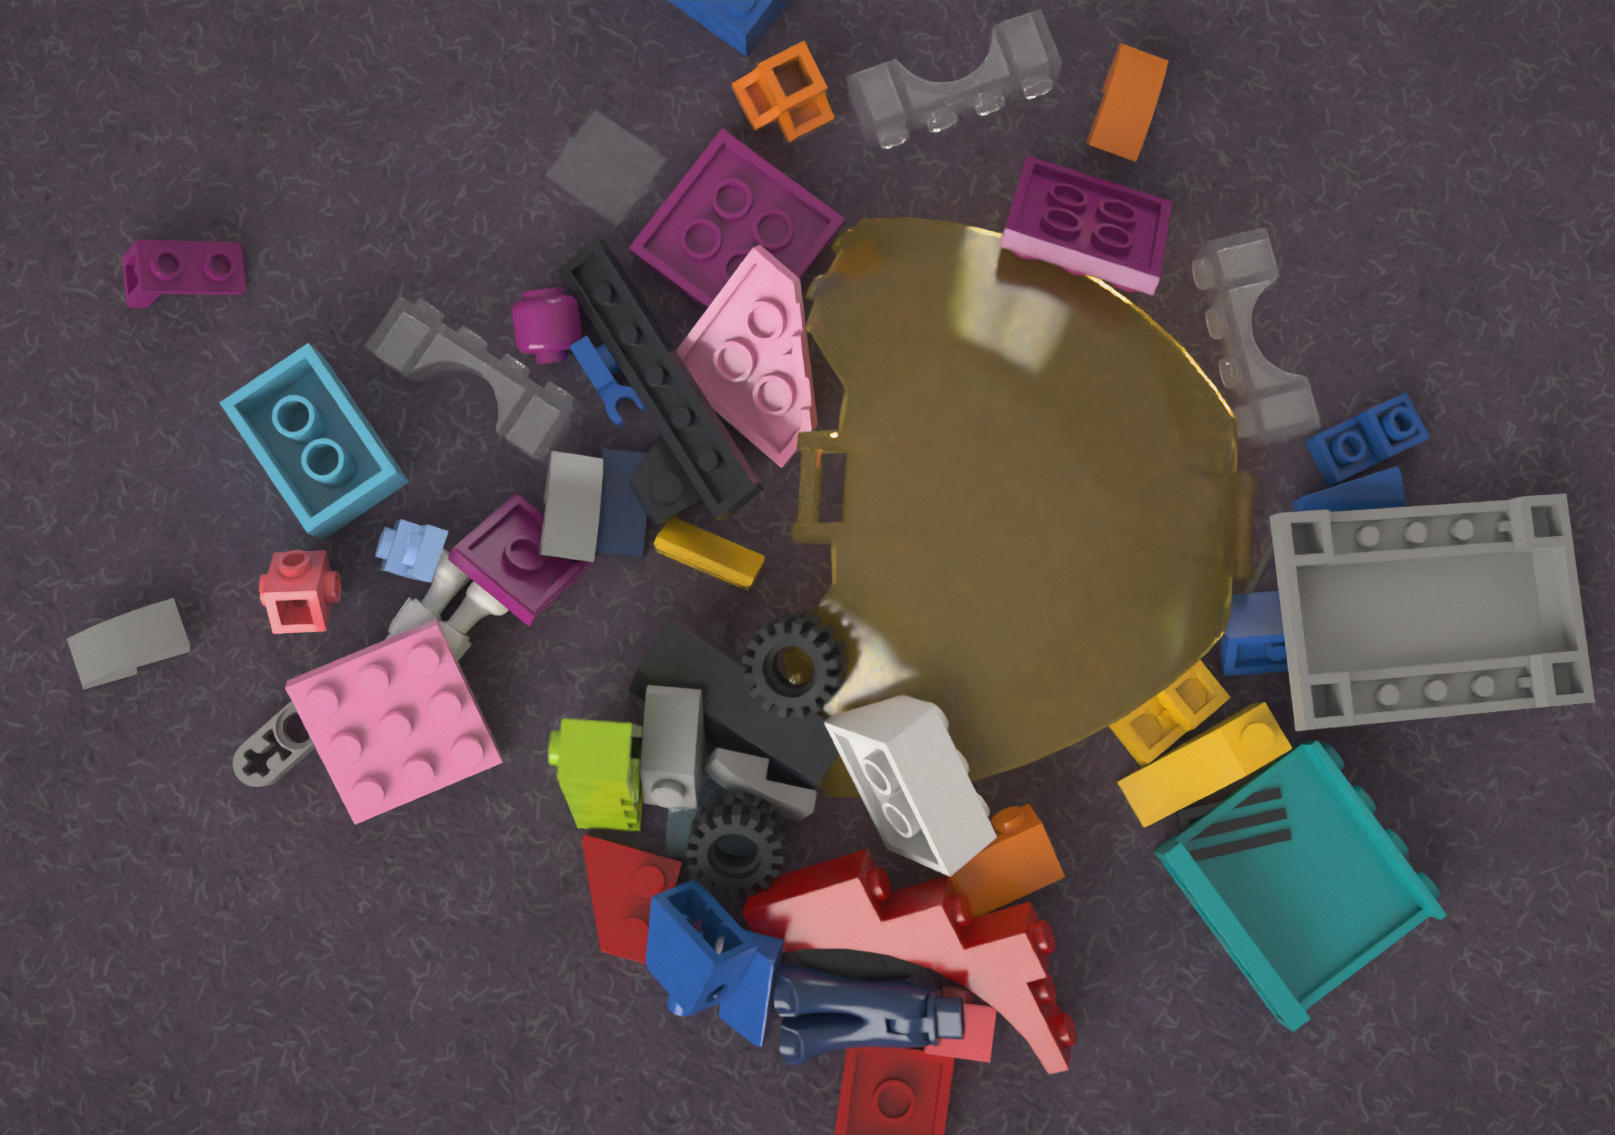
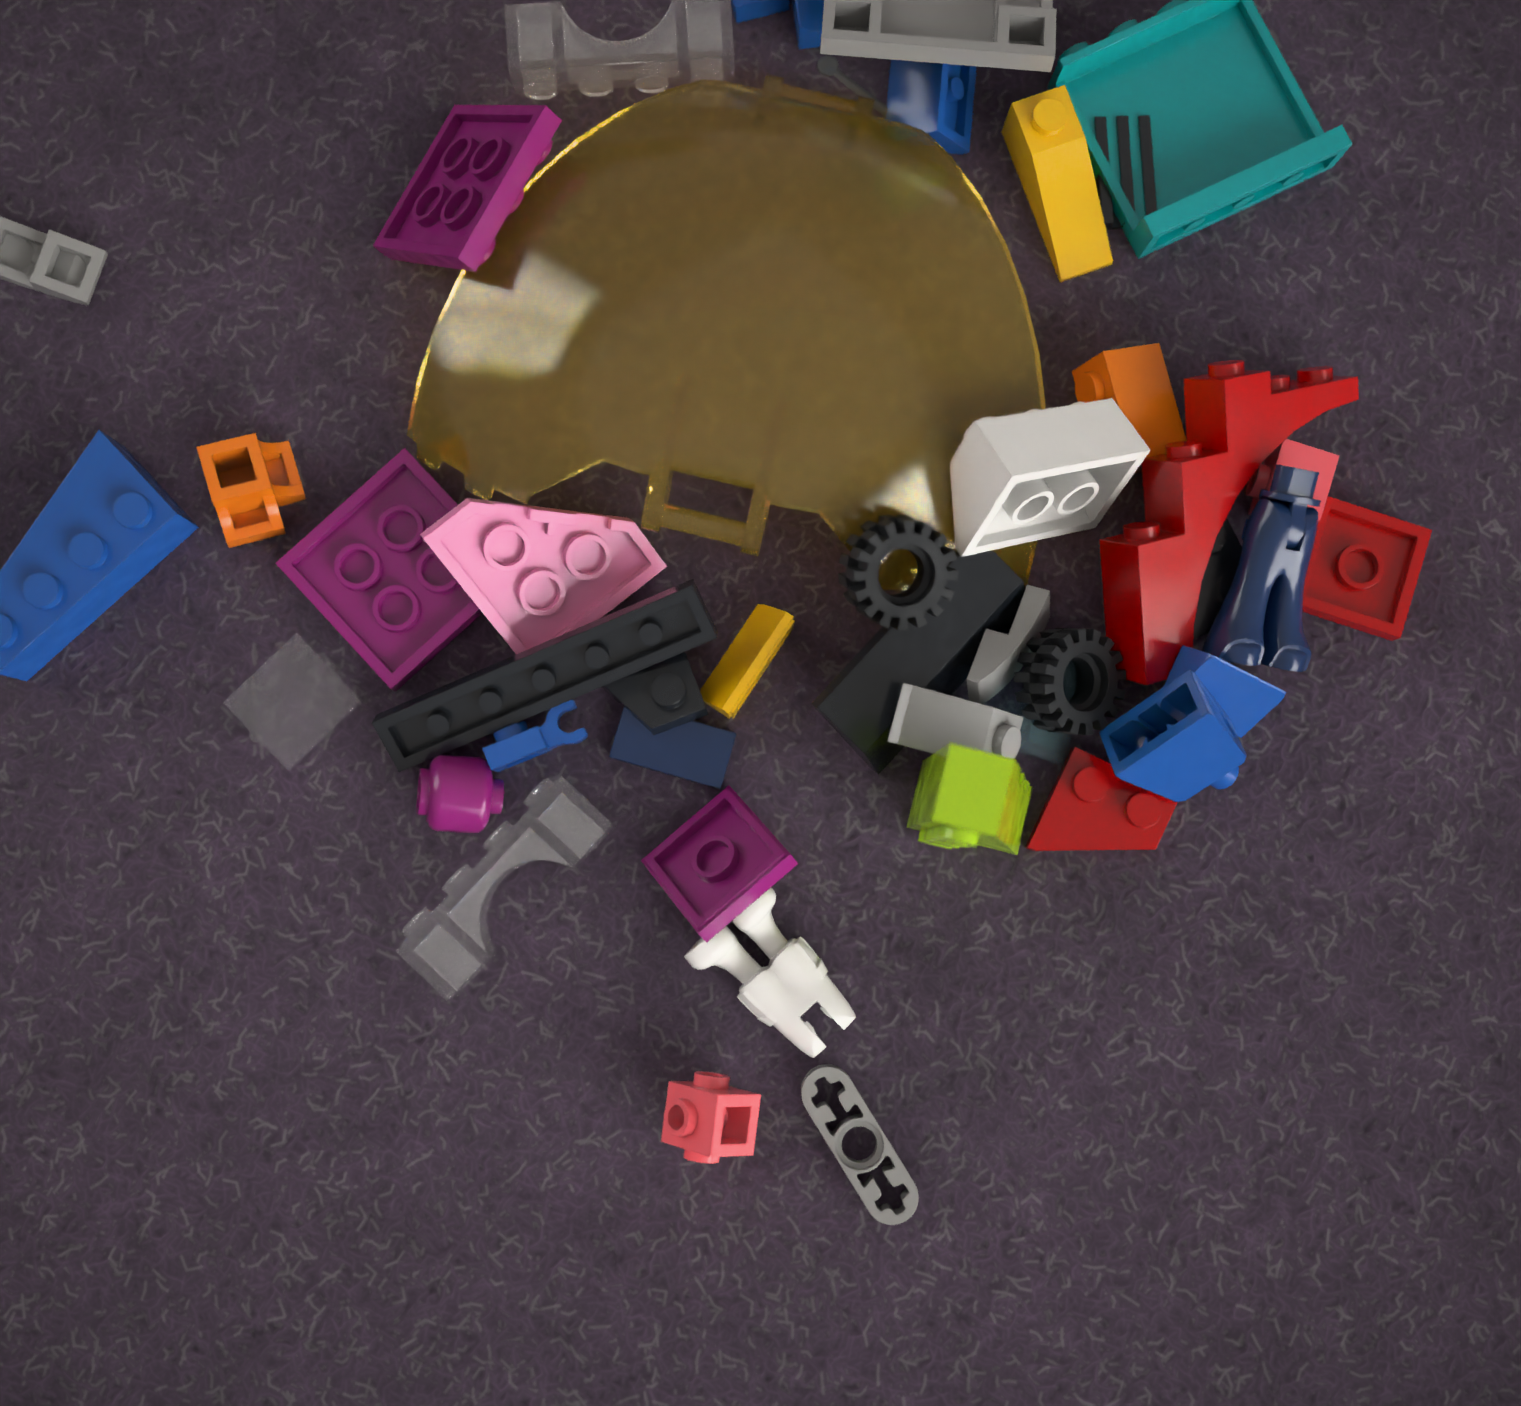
camera: 80 degrees left, 0 degrees up
(128, 641) = (732, 1325): light grey slope -> none
(181, 268) = (312, 1202): magenta bracket -> none
(314, 442) = (543, 1076): medium azure brick -> none
(394, 721) = (873, 1034): bright pink plate -> none
(411, 550) = (687, 982): light blue slope -> none
(571, 506) = (670, 797): light grey slope -> none
(895, 102) = (283, 371): clear arch -> none
(1128, 102) = (339, 125): orange slope -> none
(1170, 714) = (1003, 198): yellow slope -> none

